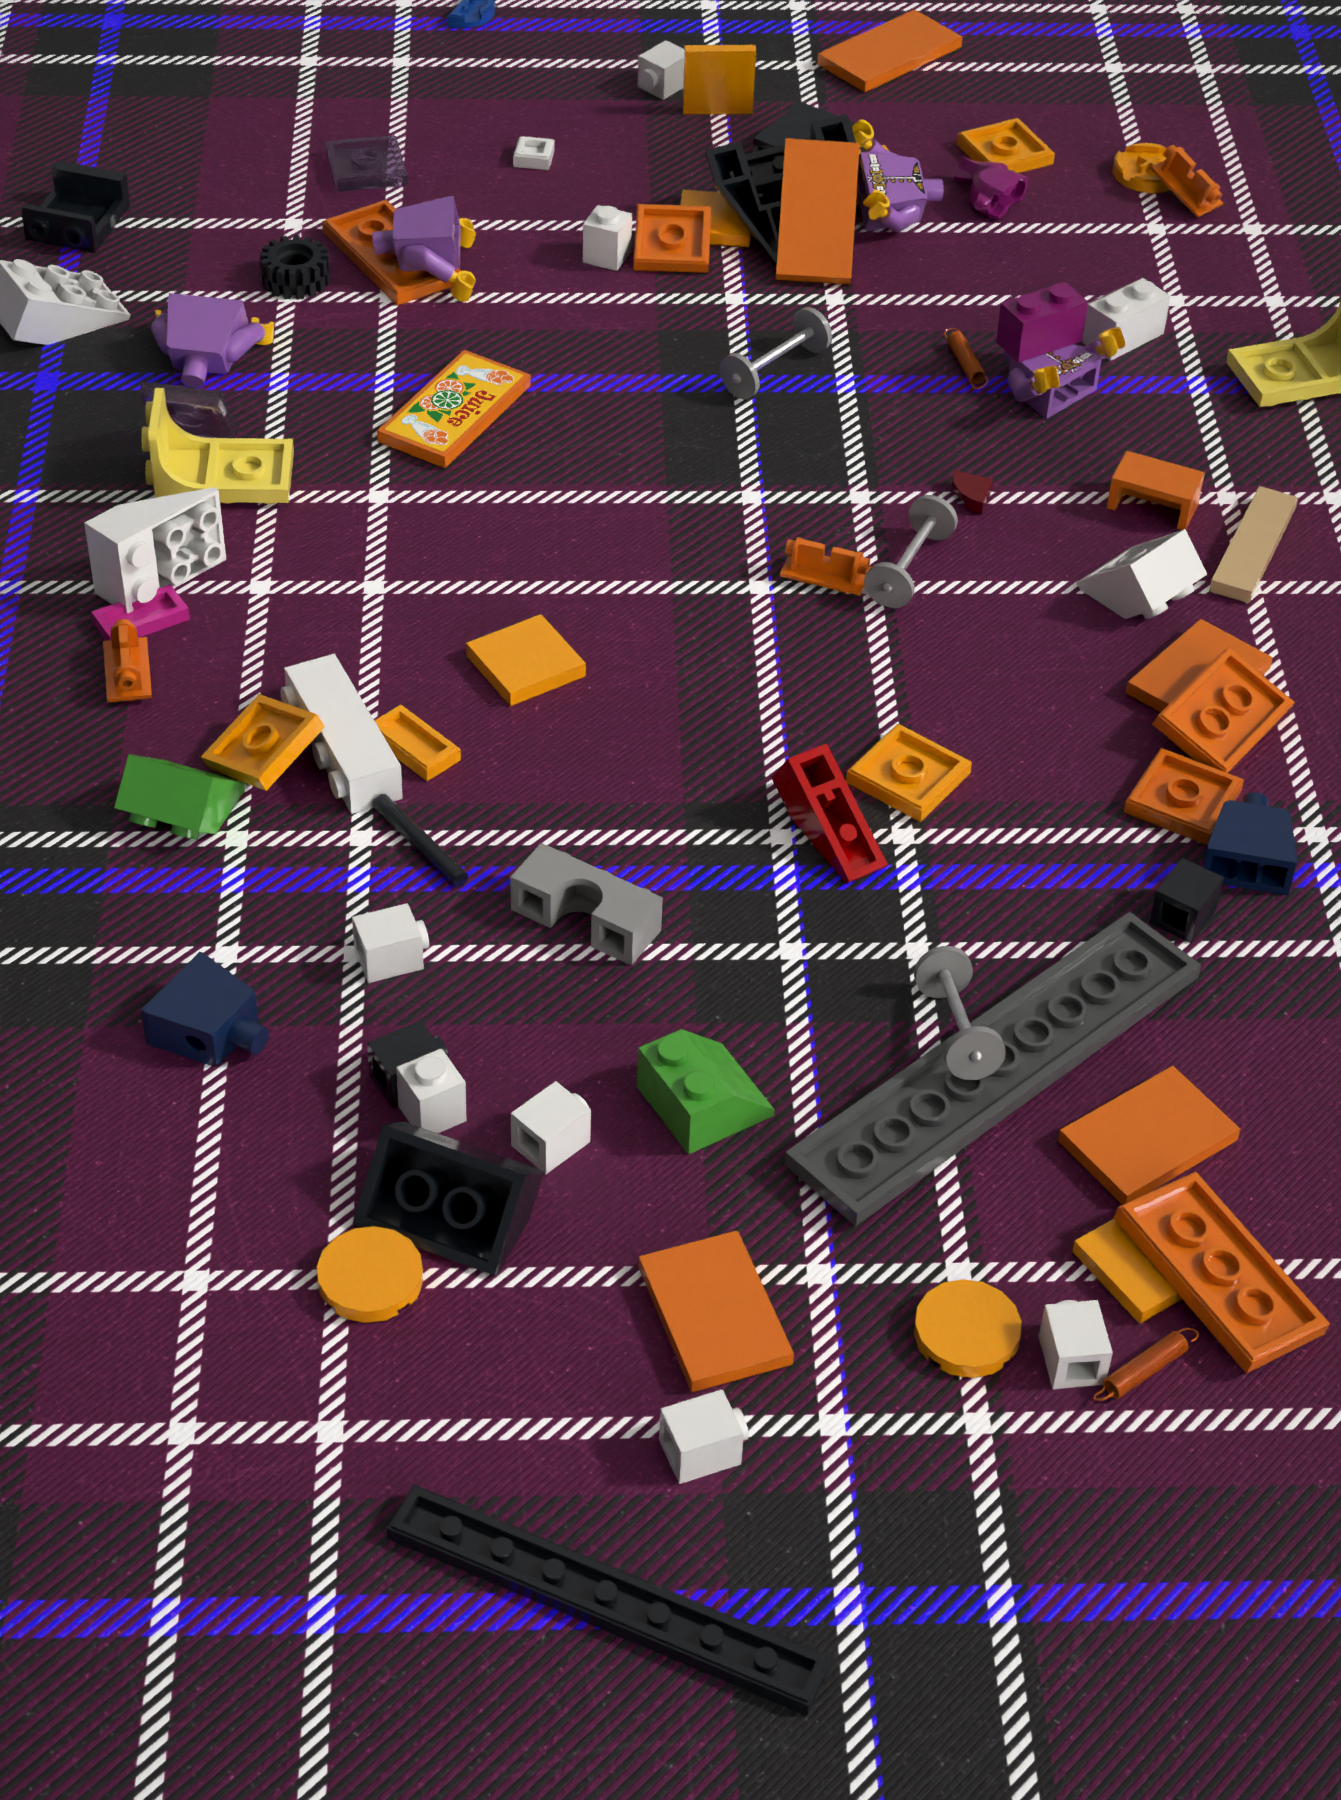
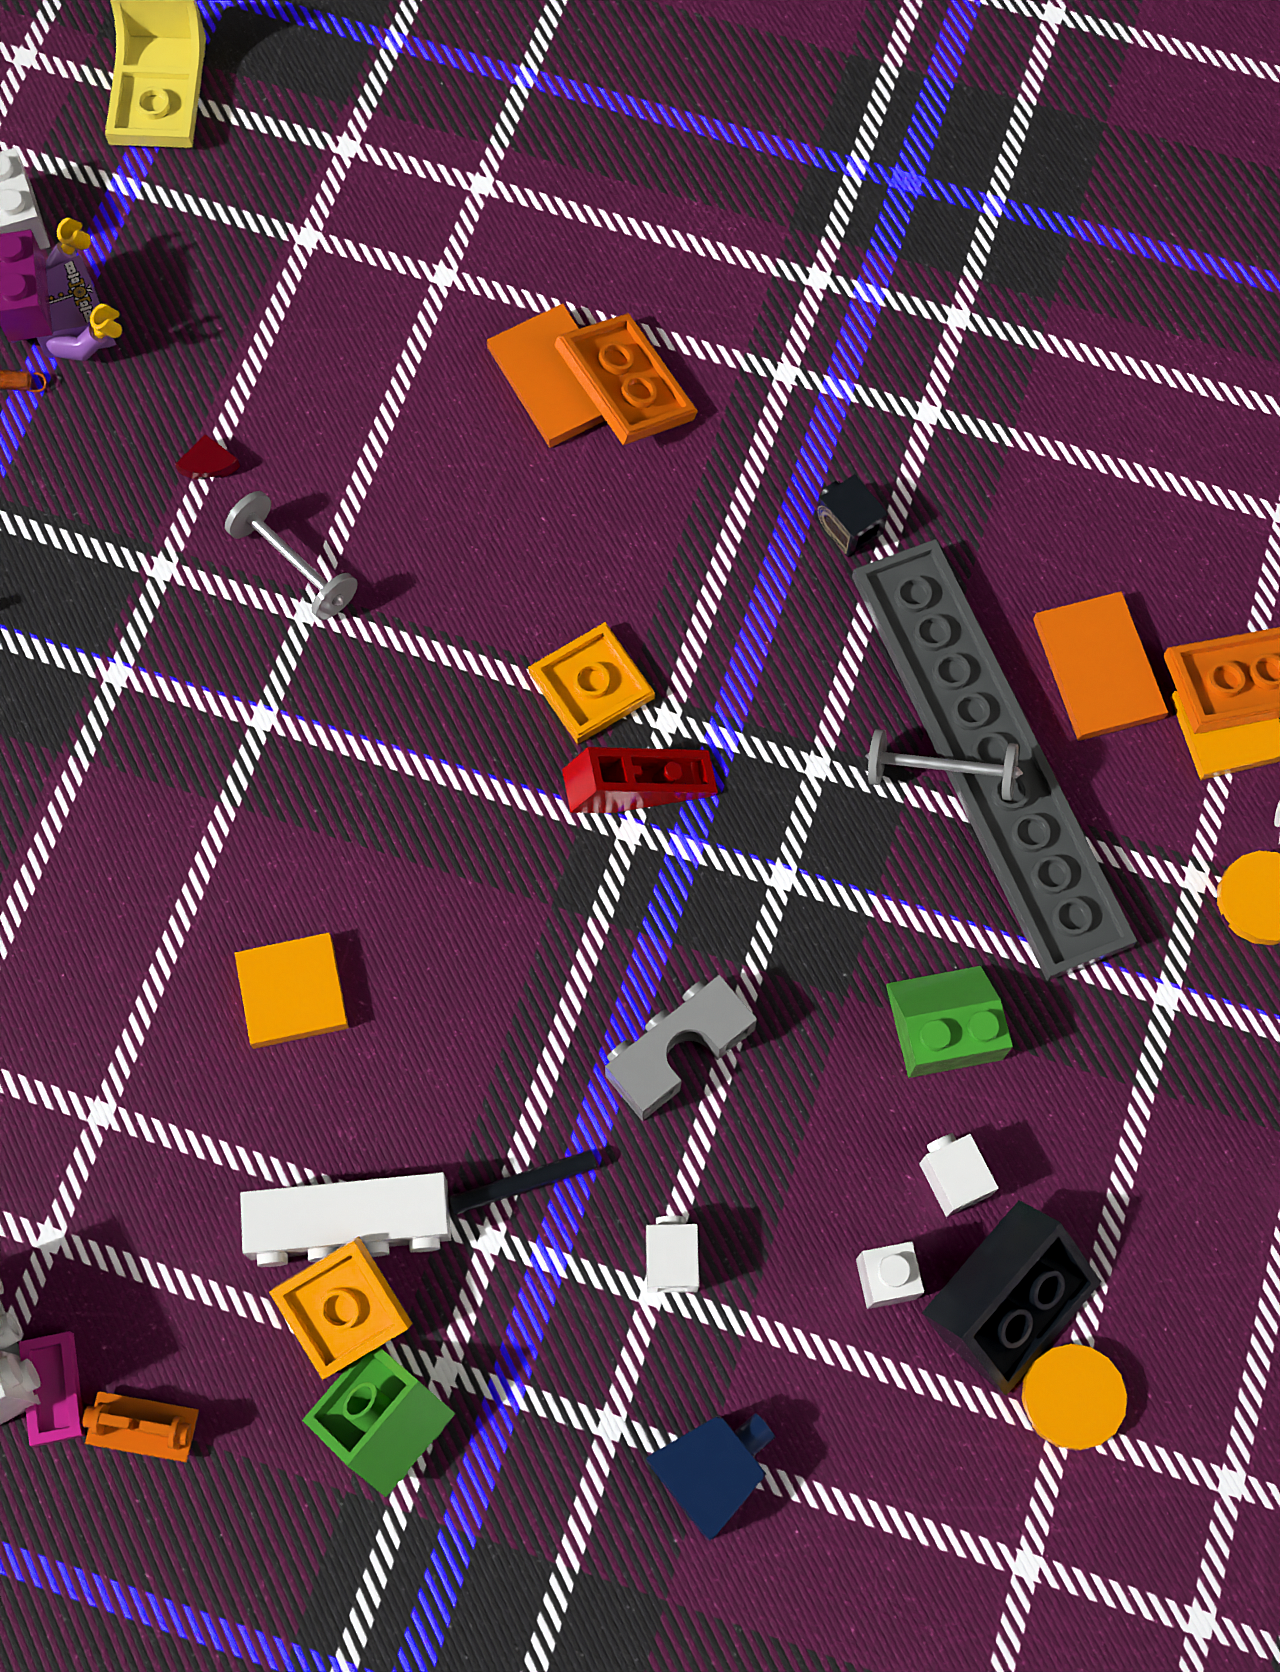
camera: 70 degrees left, 25 degrees up
(397, 1049) = (838, 1285): black brick -> none
(417, 743) = (375, 1144): light orange tile -> none
(715, 1311) = (1194, 1100): orange tile -> none
(841, 571) = (276, 646): orange hinge -> none
(1146, 576) = (409, 361): white slope -> none
(1158, 483) = (286, 291): orange panel -> none
(1182, 795) = (707, 459): orange tile -> none
(1253, 544) = (393, 245): tan tile -> none
(1253, 845) = (800, 431): dark blue torso -> none

